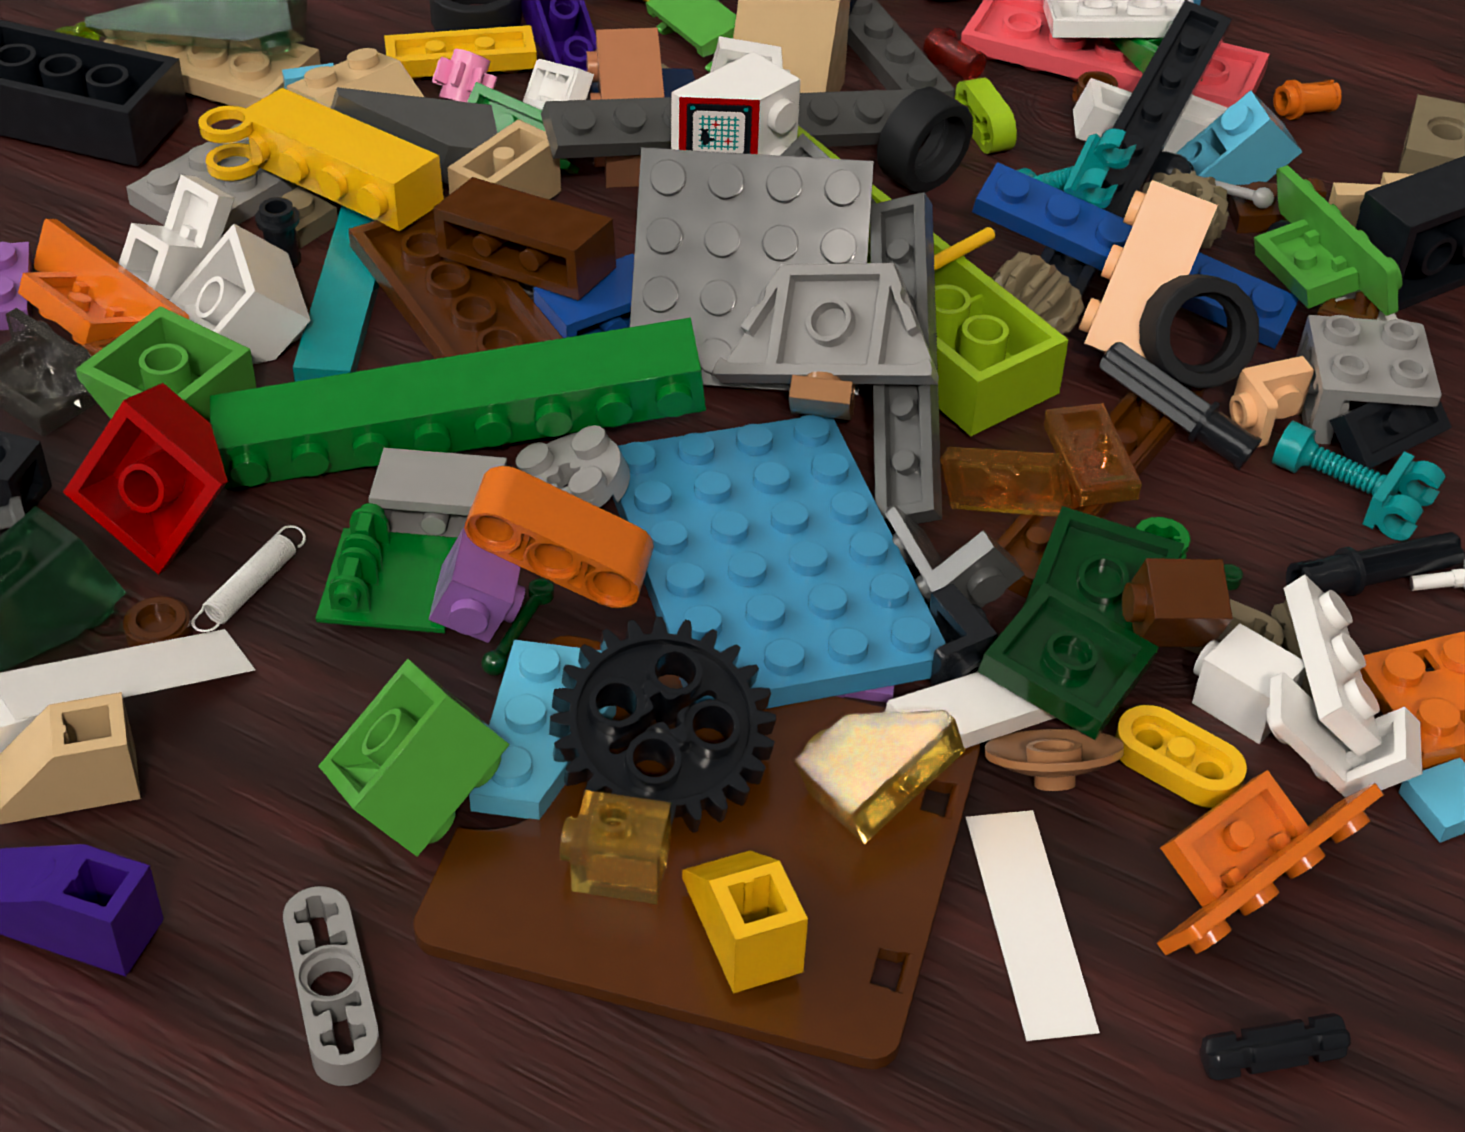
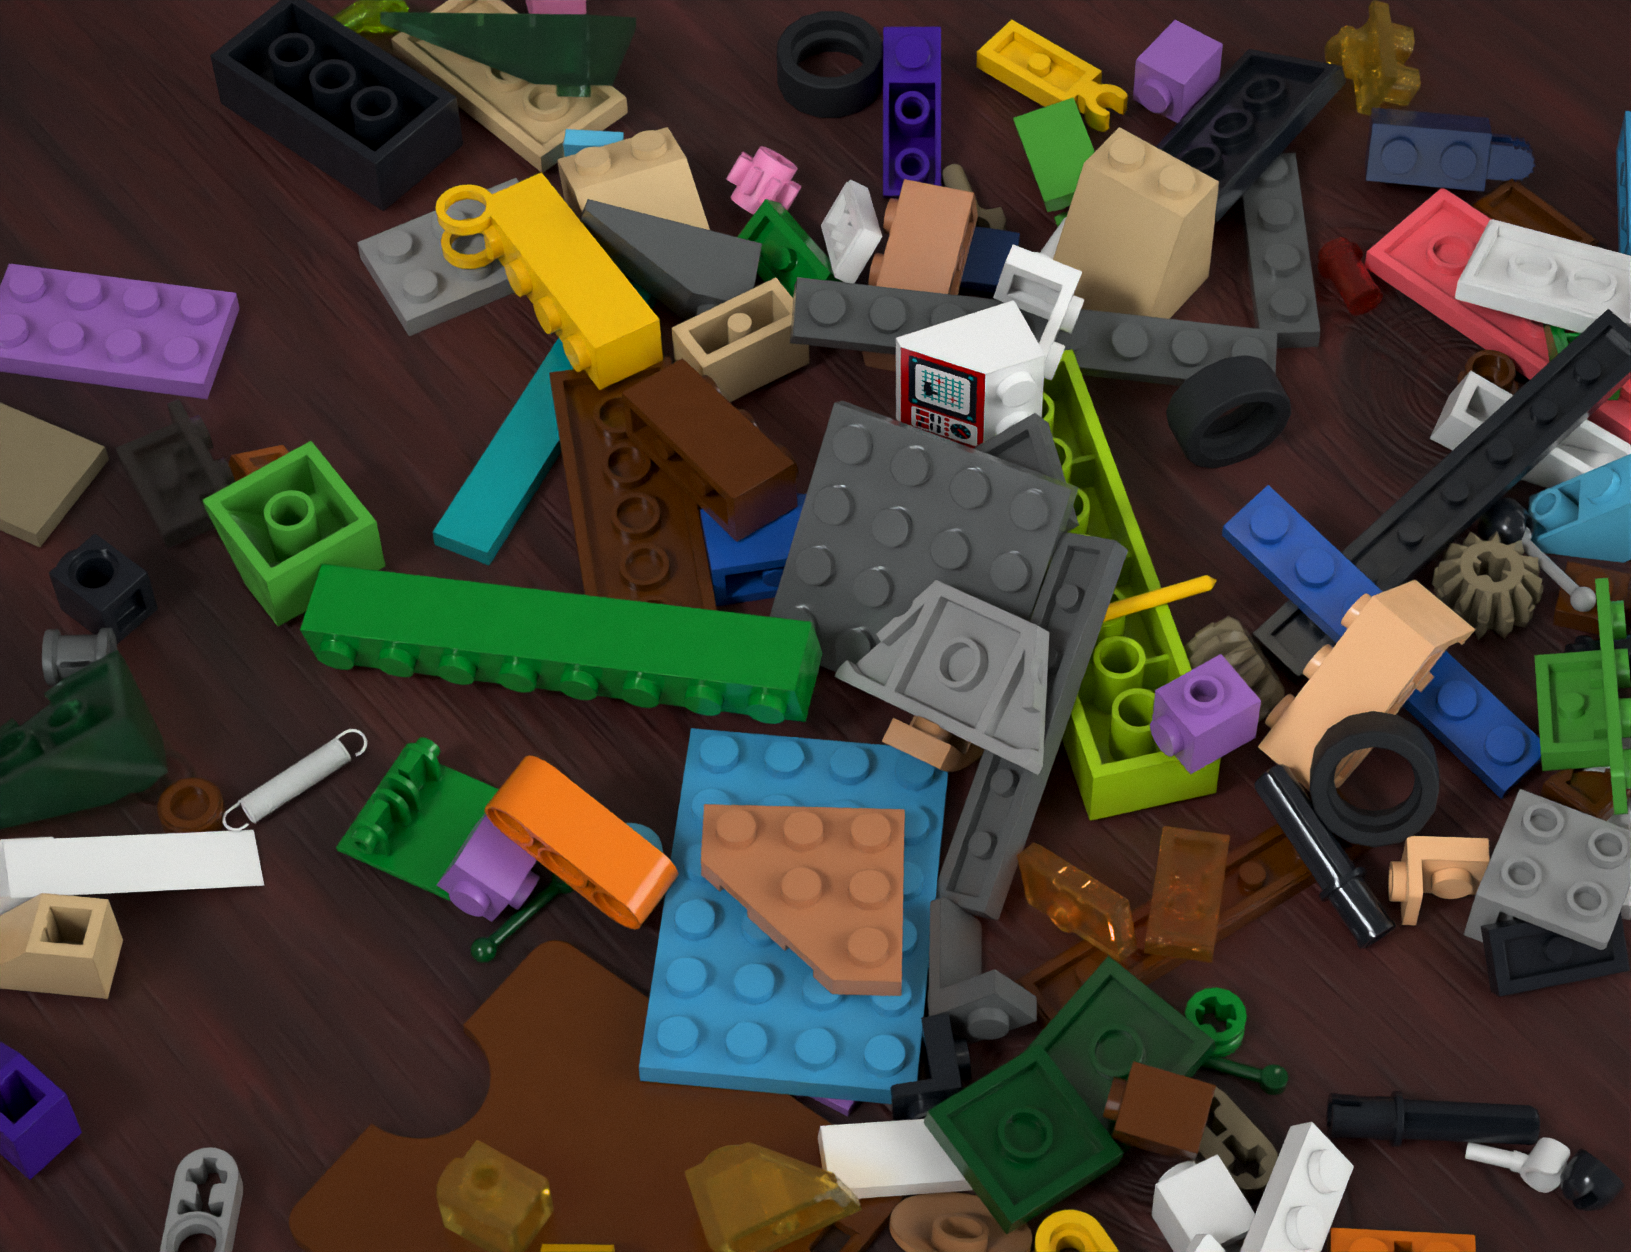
camera: 25 degrees right, 10 degrees up
(86, 287) = (267, 385): orange bracket -> none
(151, 475) = (231, 647): red slope -> none
(171, 252) = (374, 355): white brick -> none
(246, 294) = (408, 437): white slope -> none
(278, 223) = (482, 346): black pin -> none
(315, 215) = (515, 329): dark tan plate -> none
(413, 758) = (347, 1046): bright green slope -> none
(428, 489) = (490, 731): light grey brick -> none
(505, 47) = (798, 133): yellow plate -> none
(527, 772) = (493, 1035): medium azure wing -> none
(584, 461) = (626, 738): light grey plate -> none
(627, 677) = (576, 1023): black gear -> none
(784, 518) = (817, 885): none -> nougat plate
(992, 118) = (1333, 382): lime beam -> none
(1050, 308) = (1204, 714): none -> medium lavender brick
(1090, 169) = (1362, 526): teal bar -> none
(1299, 449) = (1495, 1065): teal bar -> none

